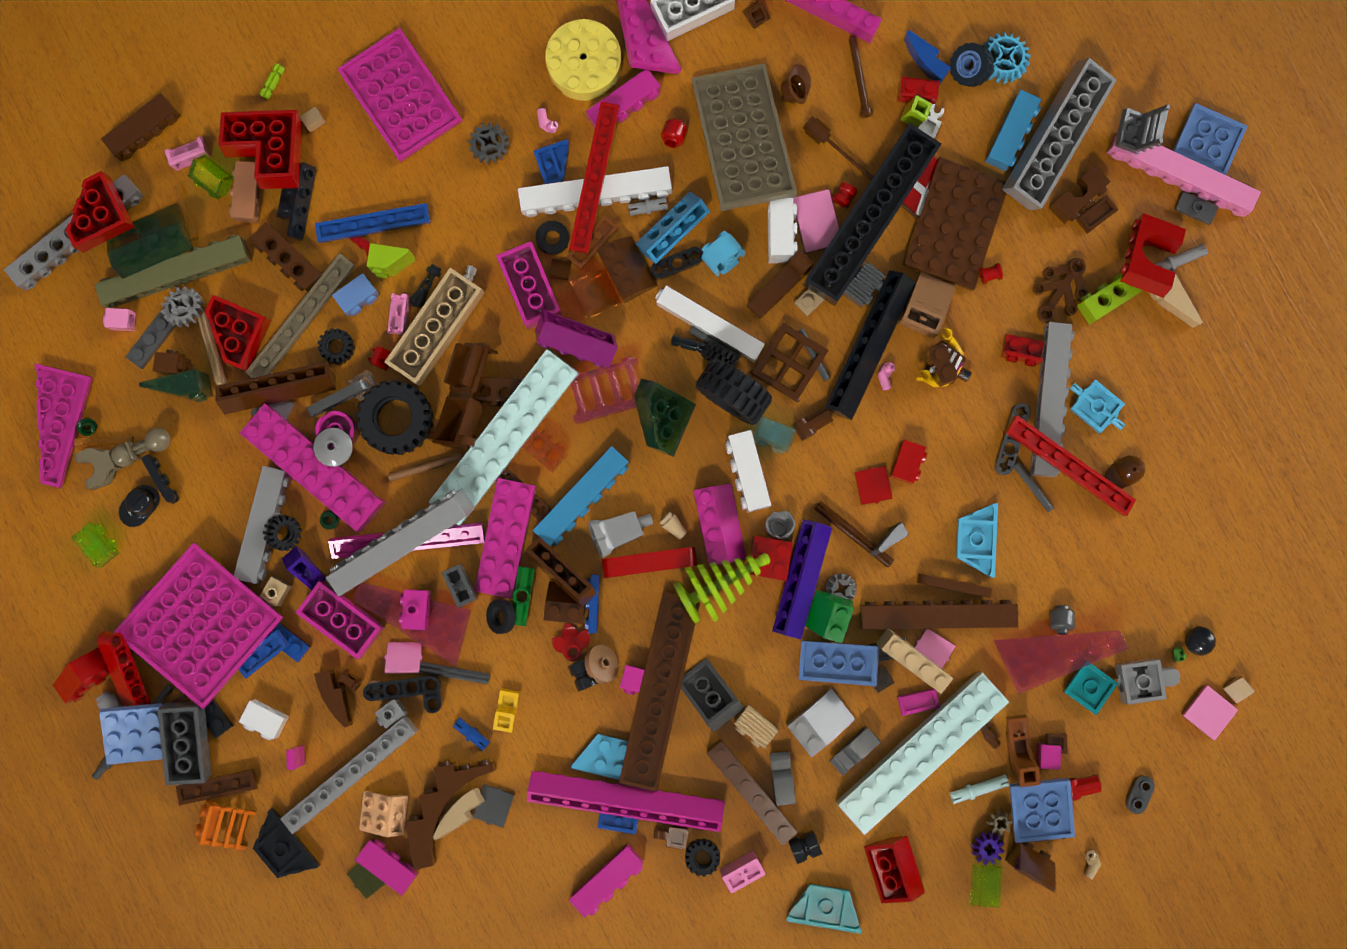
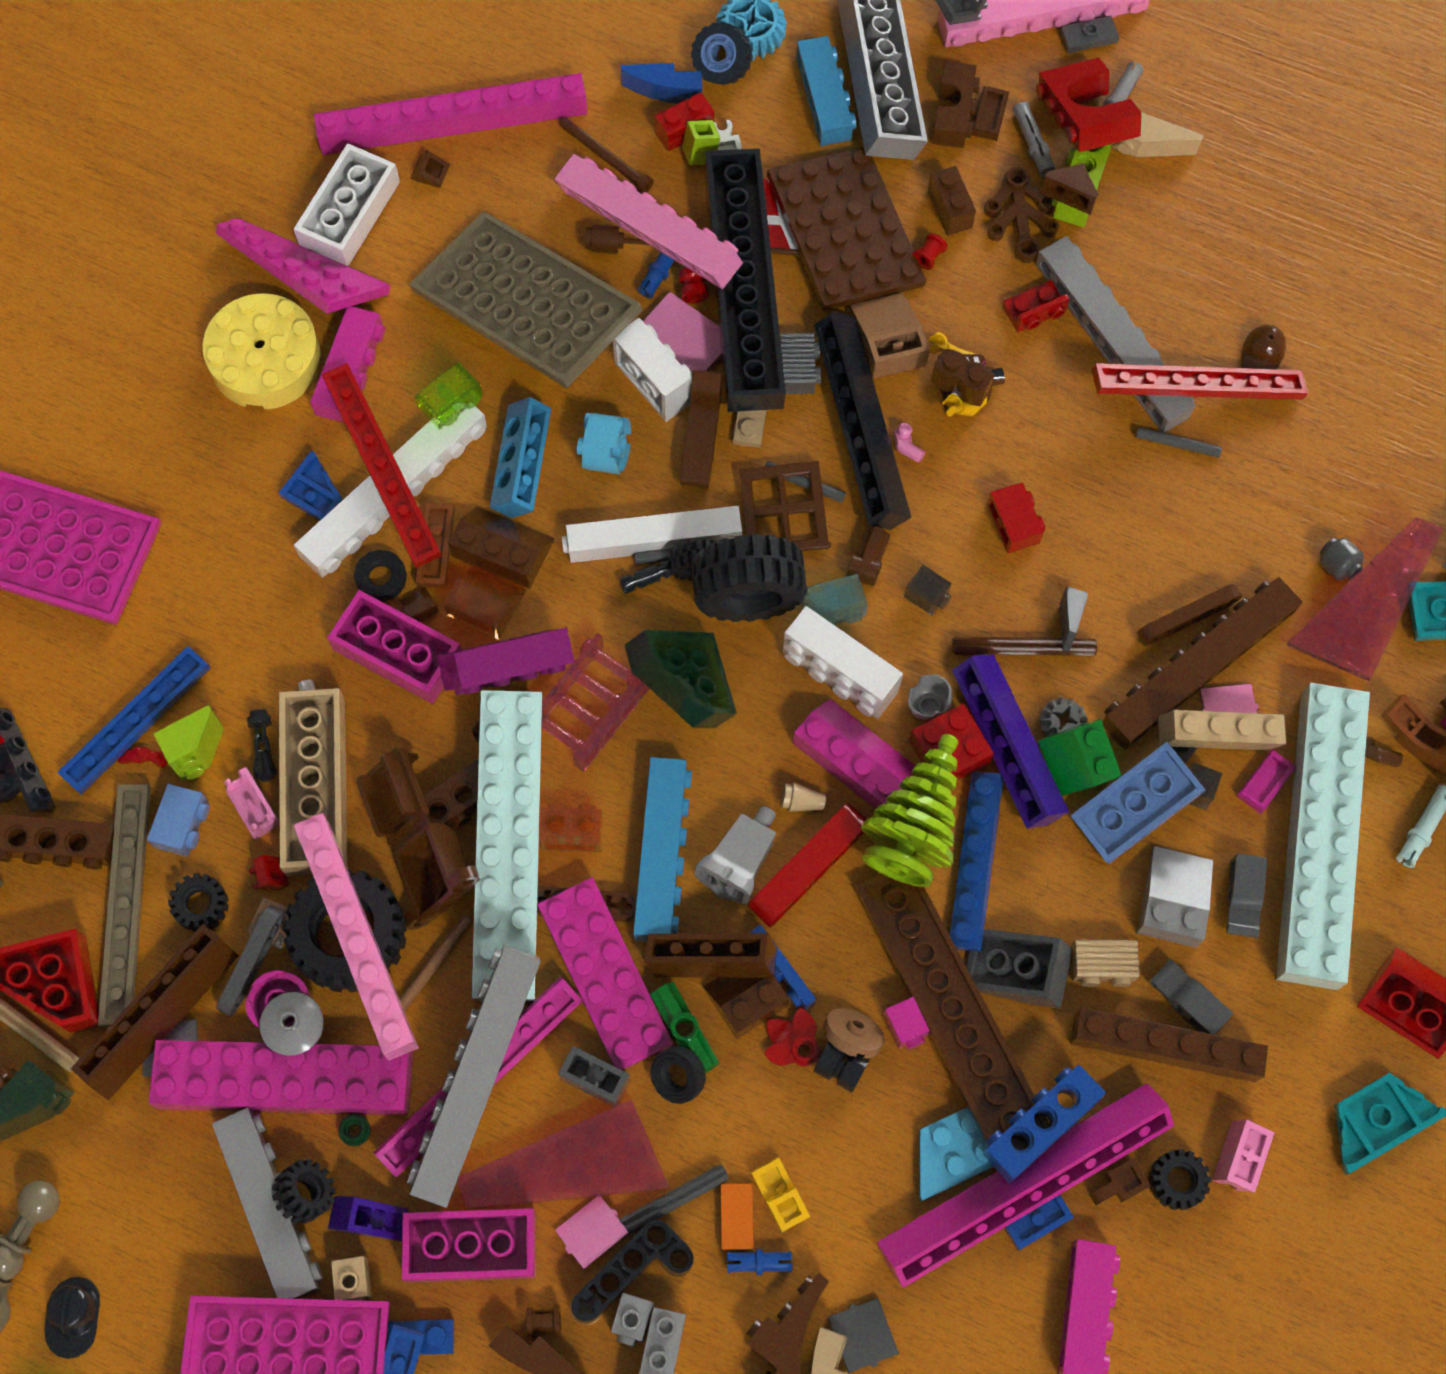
camera: 45 degrees left, 15 degrees down
(160, 480) = (82, 1254): black hinge -> none
(391, 429) = (356, 937): none -> bright pink brick
(415, 609) = (560, 1150): dark pink brick -> none
(477, 704) = (737, 1217): none -> orange tile
(491, 135) = (228, 524): dark grey gear -> none
(544, 123) = (275, 454): bright pink arm -> none
(624, 790) = (1084, 1094): none -> blue brick
(647, 206) = (470, 459): light grey pin -> none
(658, 165) = (449, 396): none -> clear neon green brick
(662, 263) = (574, 483): black beam -> none
(674, 133) = (436, 355): red head -> none
(734, 625) = (976, 861): none -> blue plate
(796, 85) = (539, 210): reddish brown piece -> none
(805, 847) = (1292, 1058): black wheel -> none
(828, 466) = (928, 590): none -> clear smoke brick
(832, 172) = (656, 273): none -> blue pin
(845, 142) = (649, 221): none -> bright pink brick
(873, 485) = (998, 575): red piece -> none
(978, 539) = (1170, 544): medium azure wing -> none
(1007, 439) = (1105, 409): dark grey beam -> none
(1027, 252) = (951, 200): none -> reddish brown brick
(1096, 300) = (1072, 187): none -> reddish brown slope
(1097, 406) = (1170, 305): medium azure plate -> none
(1100, 267) = (1038, 148): none -> light grey pin

